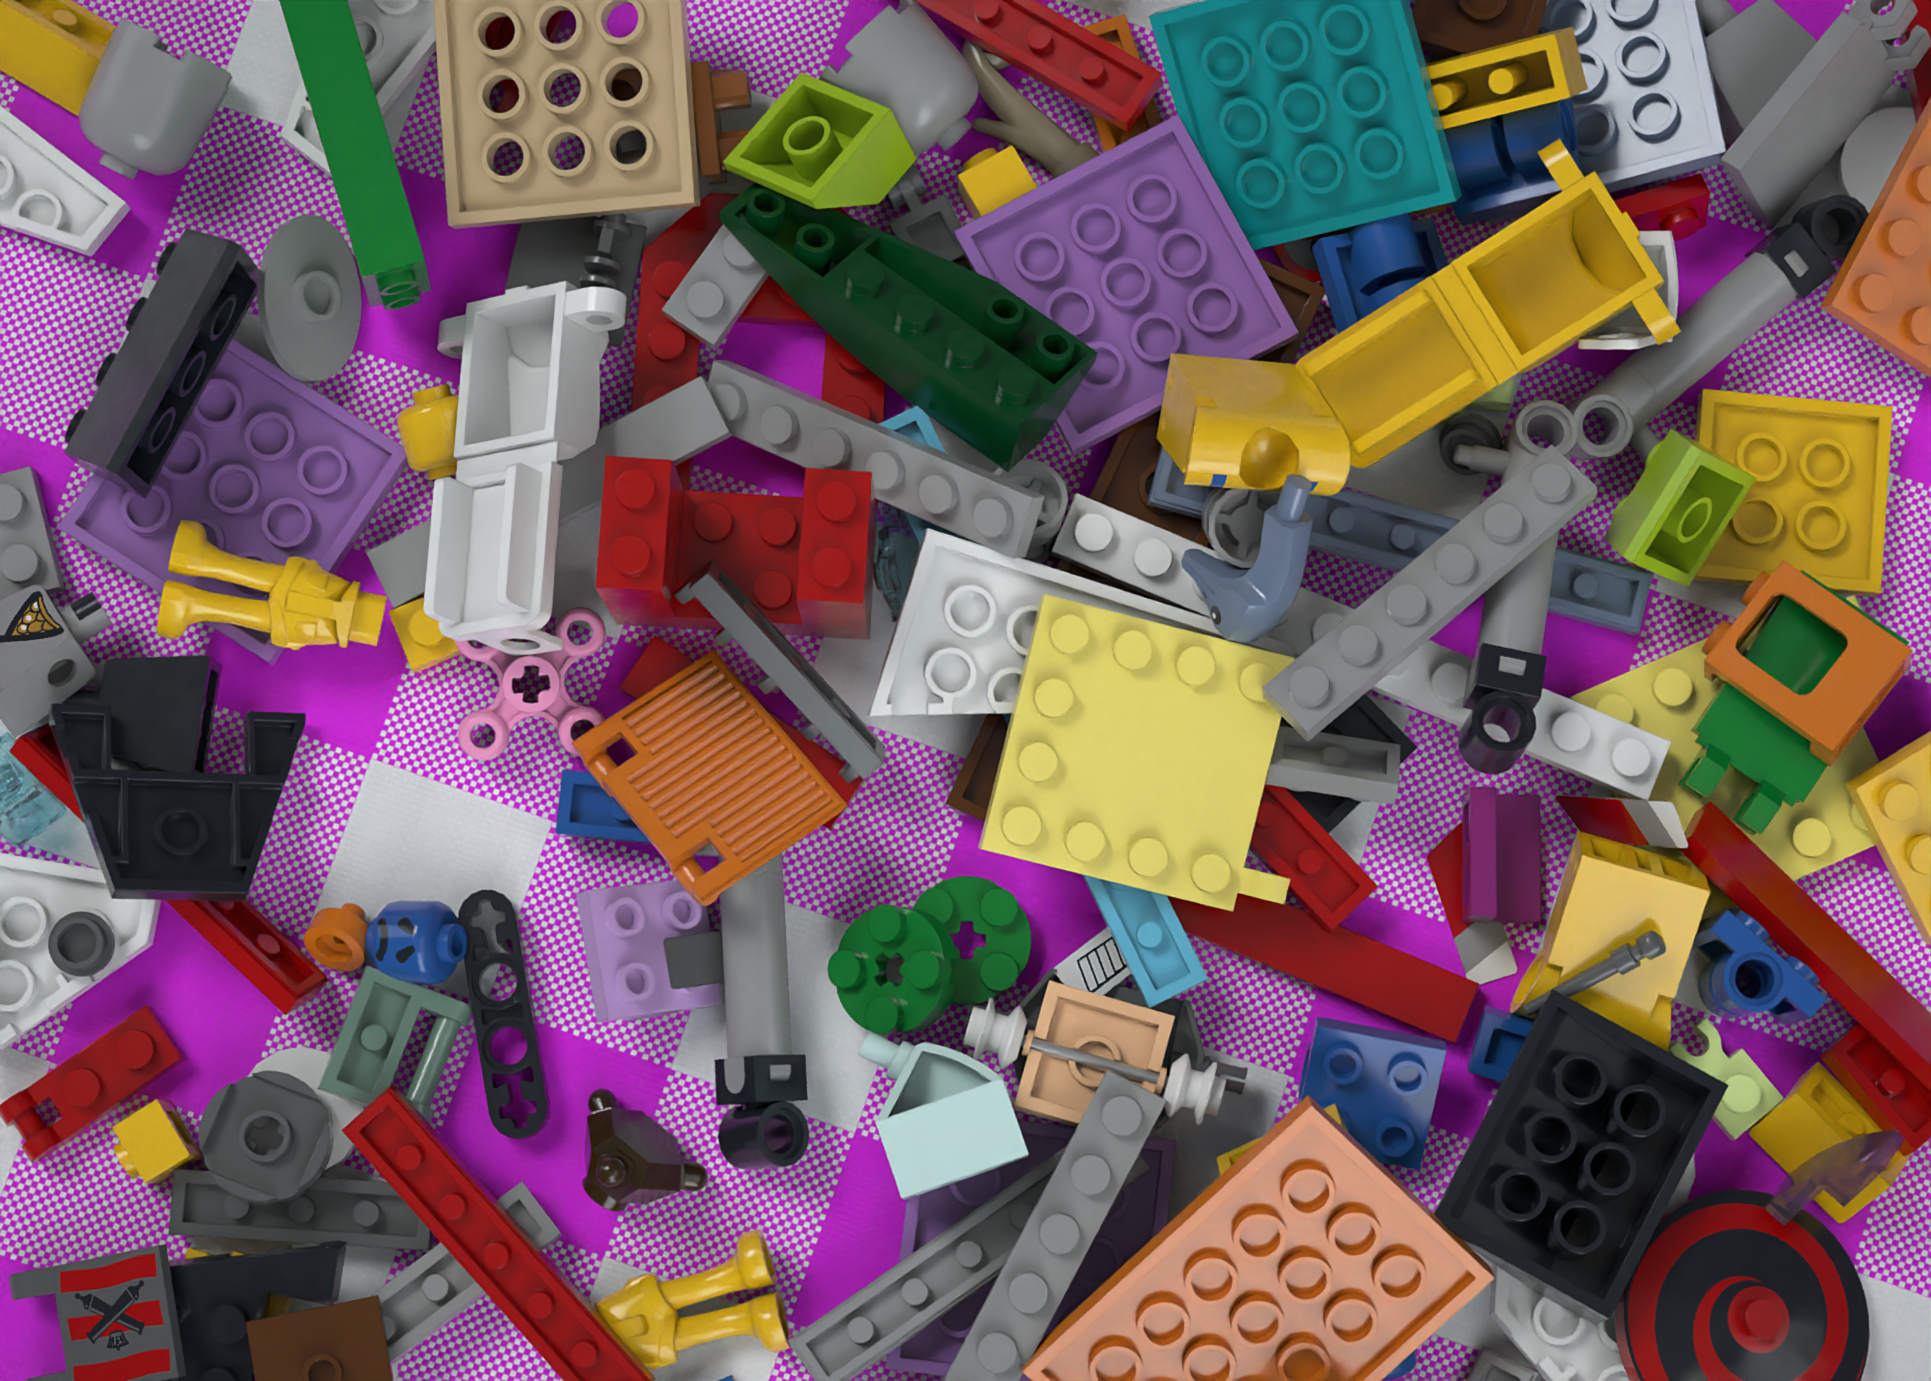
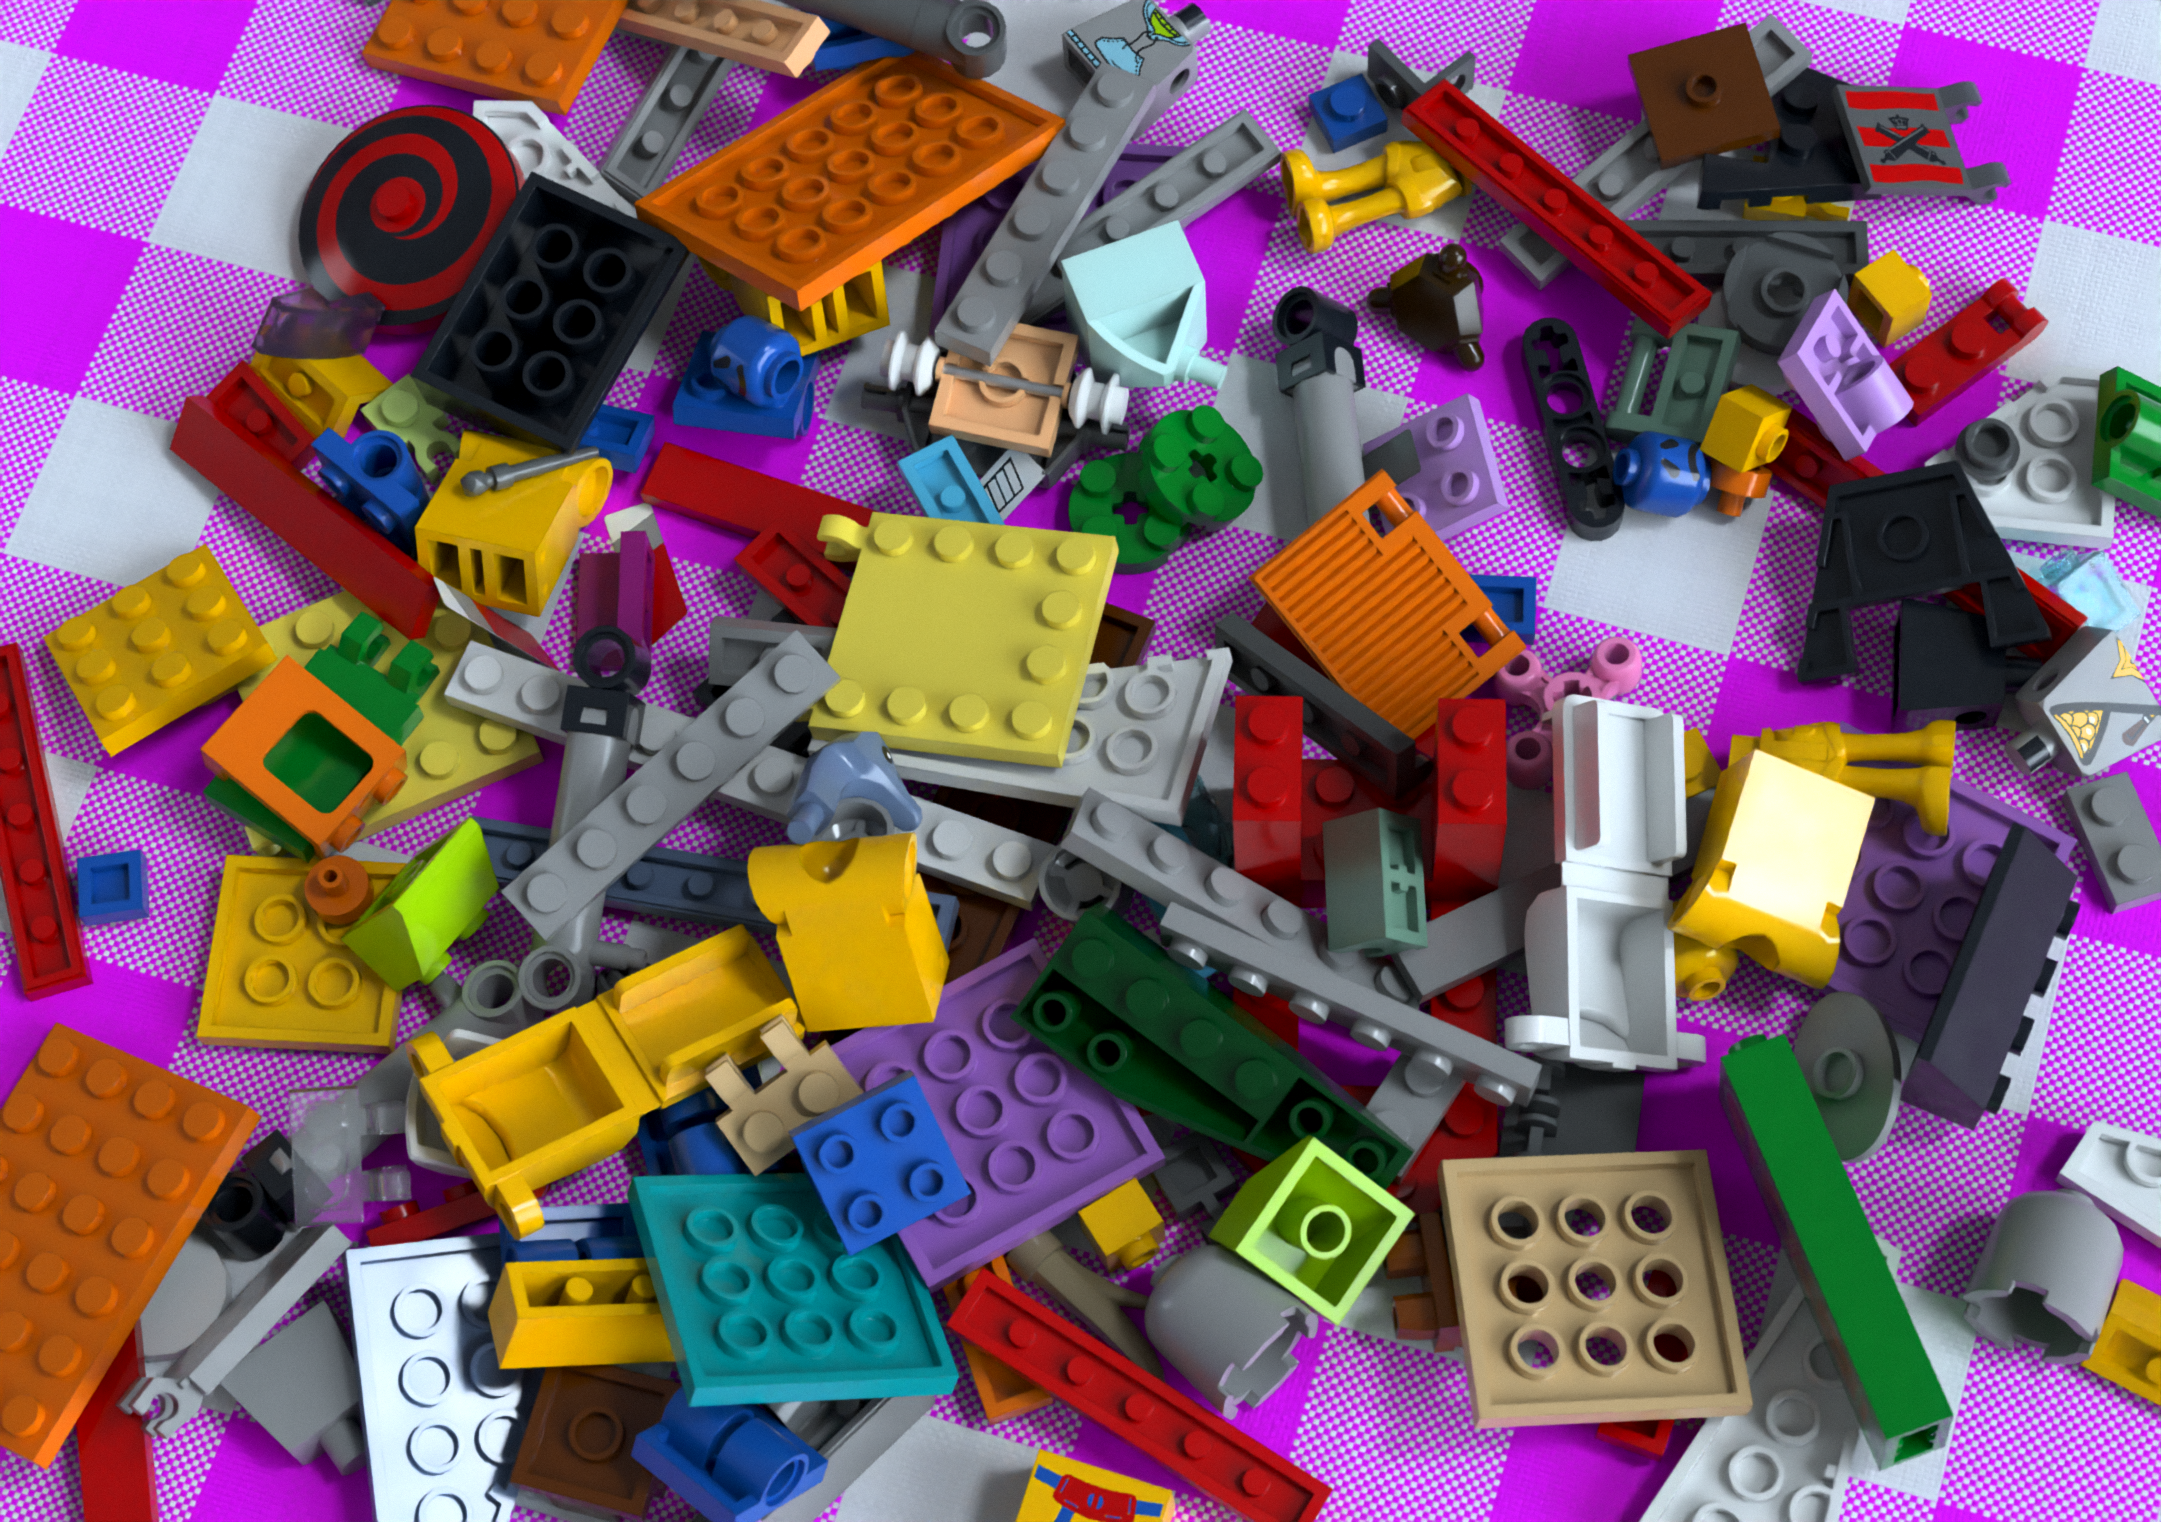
camera: 175 degrees left, 15 degrees down
(216, 1017) = (1842, 377): none -> lavender plate
(322, 969) = (1747, 429): none -> yellow plate
(354, 477) = (1775, 867): none -> piece
(739, 471) = (1374, 883): none -> sand green hinge
(750, 336) = (1370, 1016): none -> light grey plate
(1221, 207) = (879, 1162): none -> blue plate
(1305, 278) = (805, 1089): none -> tan plate
(1358, 1085) = (756, 360): none -> blue head
(1751, 252) = (328, 1154): none -> clear plate
(1753, 552) = (338, 889): none -> orange tile

